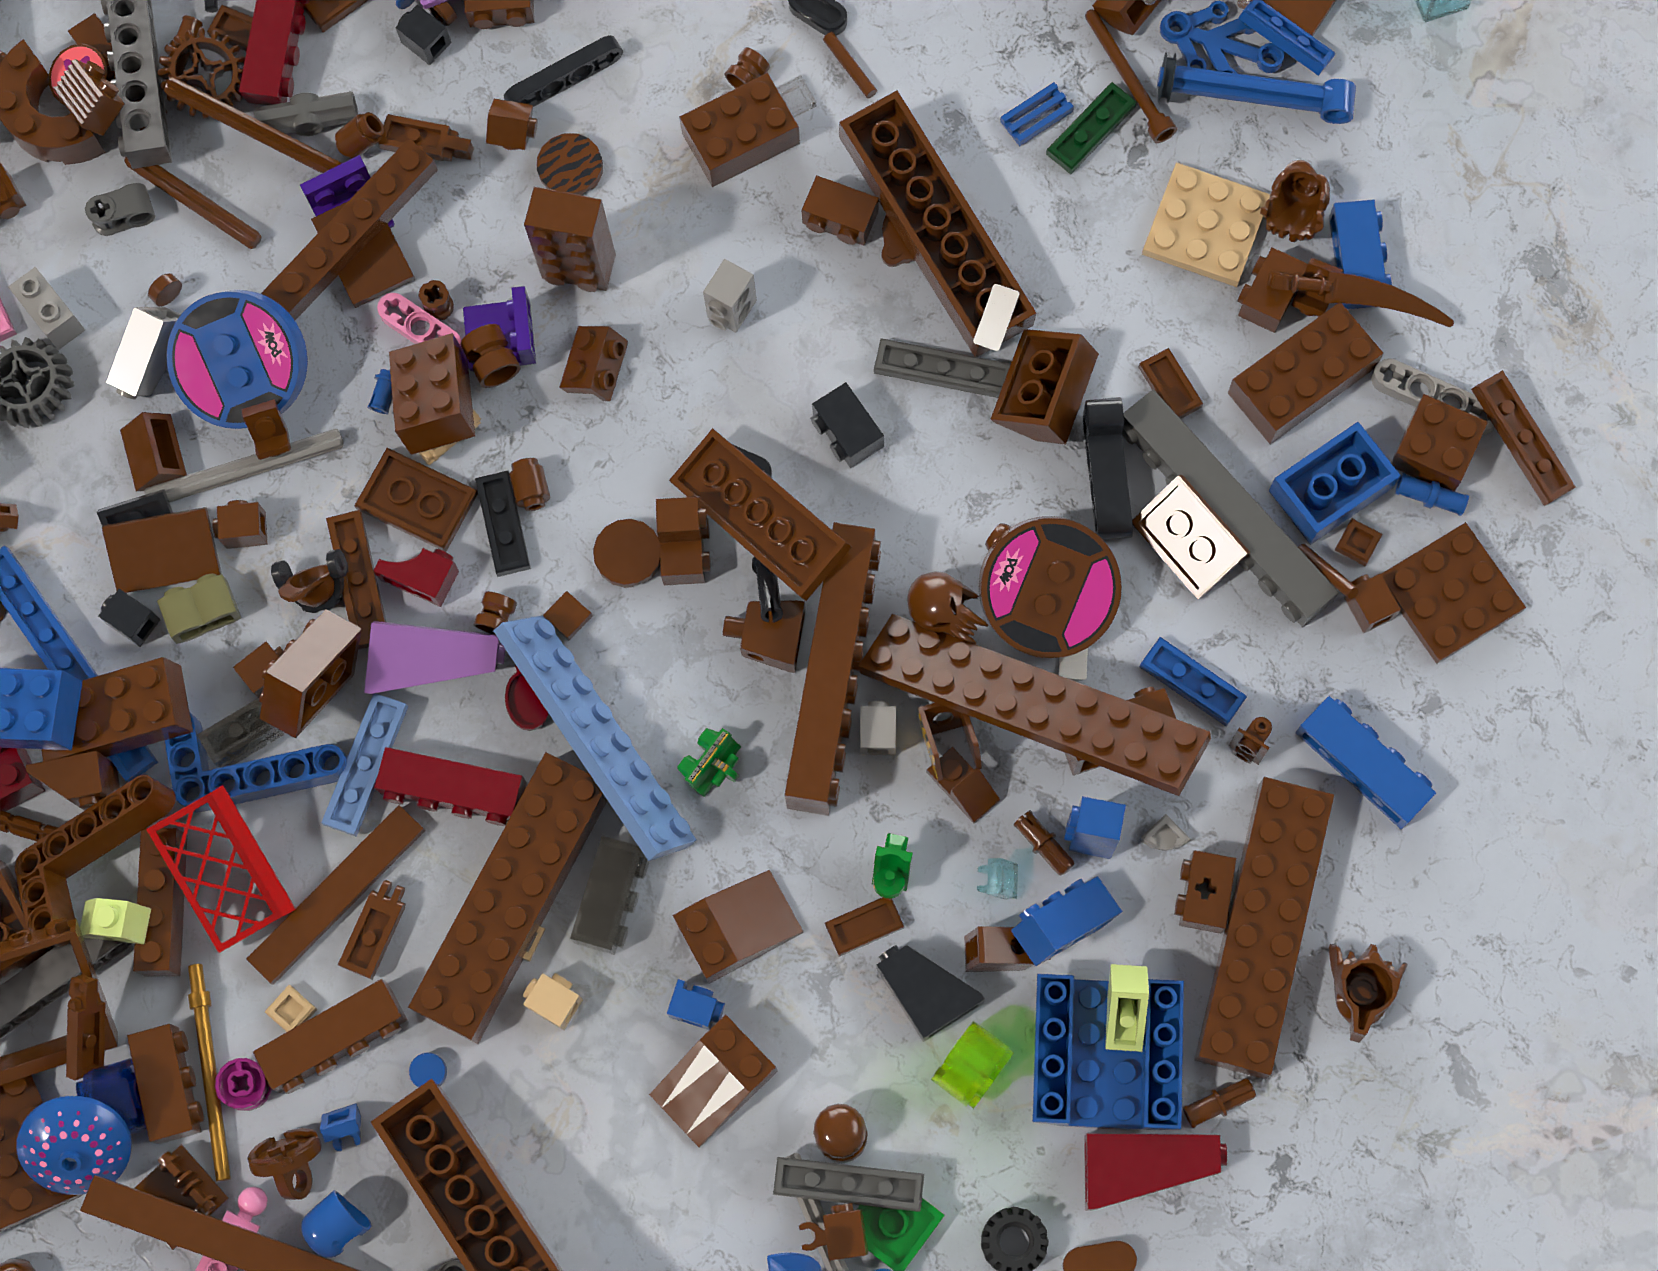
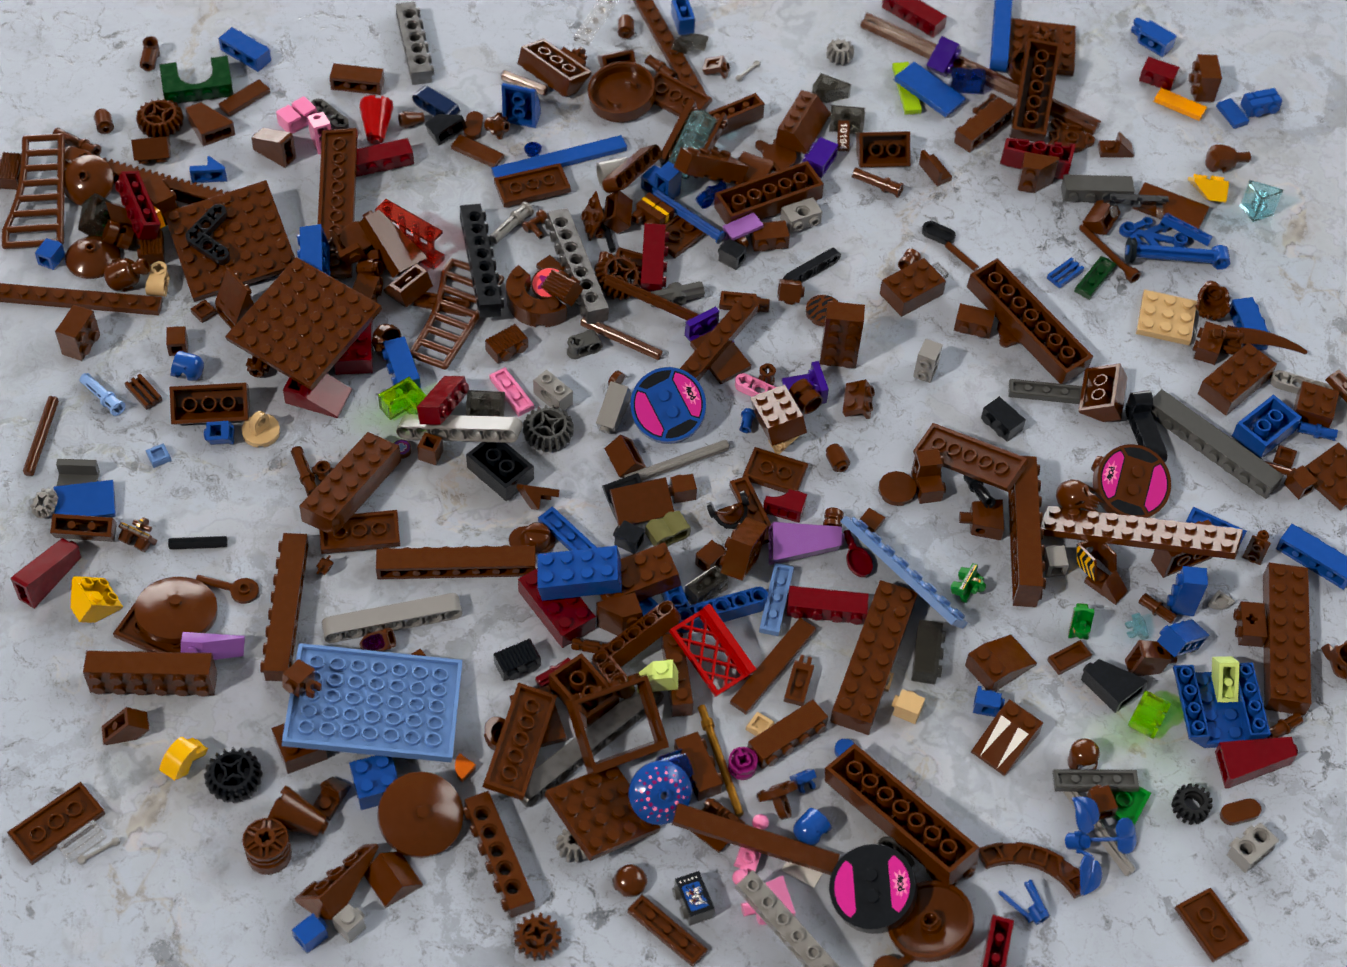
camera: 15 degrees left, 20 degrees down
(84, 1027) = (655, 729): reddish brown hinge -> none
(267, 429) = (690, 438): reddish brown bracket -> none
(359, 135) = (709, 300): reddish brown brick -> none
(502, 523) = (825, 479): black tile -> none
(996, 317) = (1073, 358): white sticker -> none
(1171, 383) = (1162, 382): reddish brown tile -> none
(1190, 537) = (1198, 457): tile -> none

